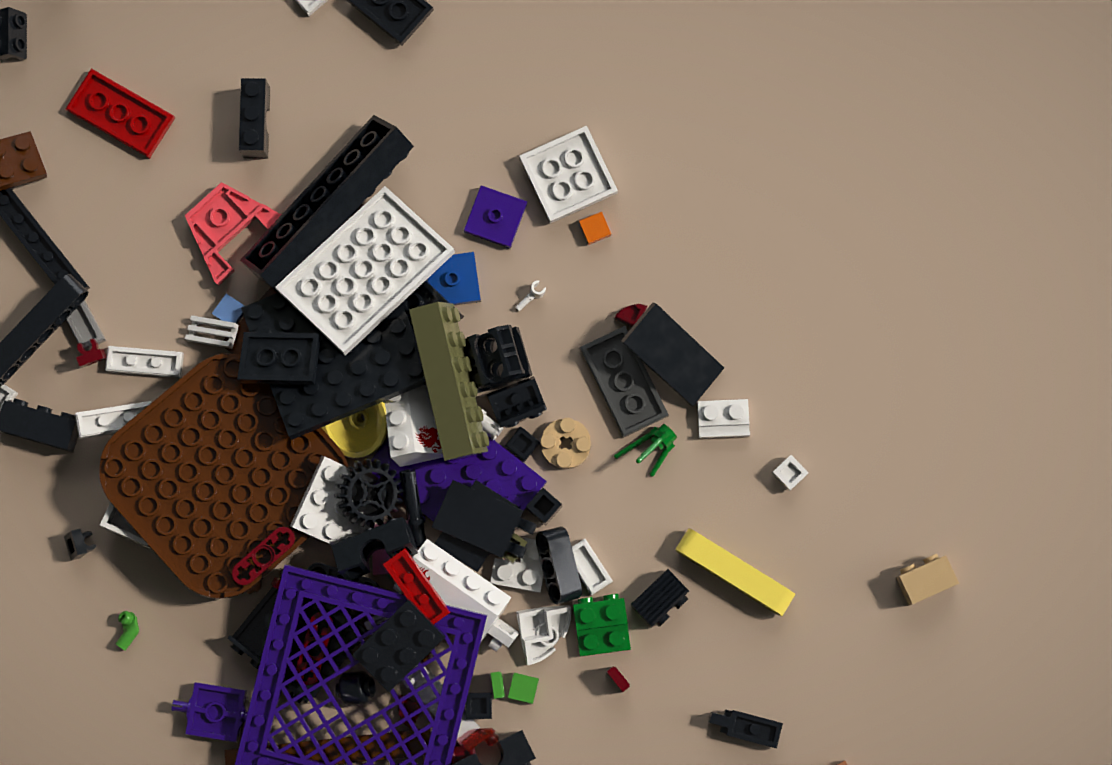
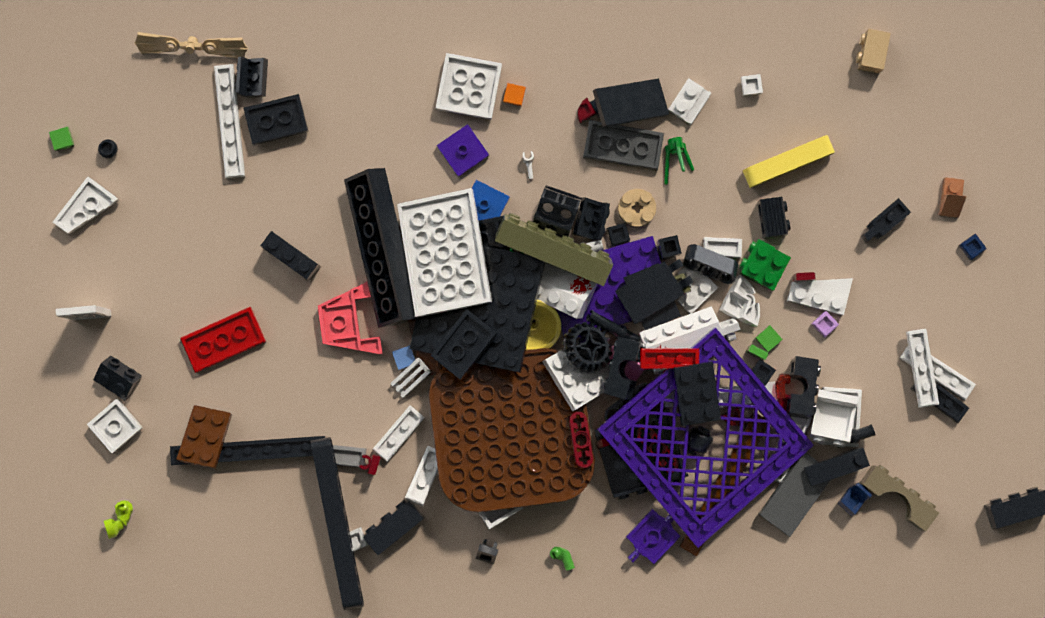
camera: 65 degrees left, 5 degrees up
(583, 740) = (825, 324): none -> lavender tile
(615, 715) = (821, 294): none -> white wing

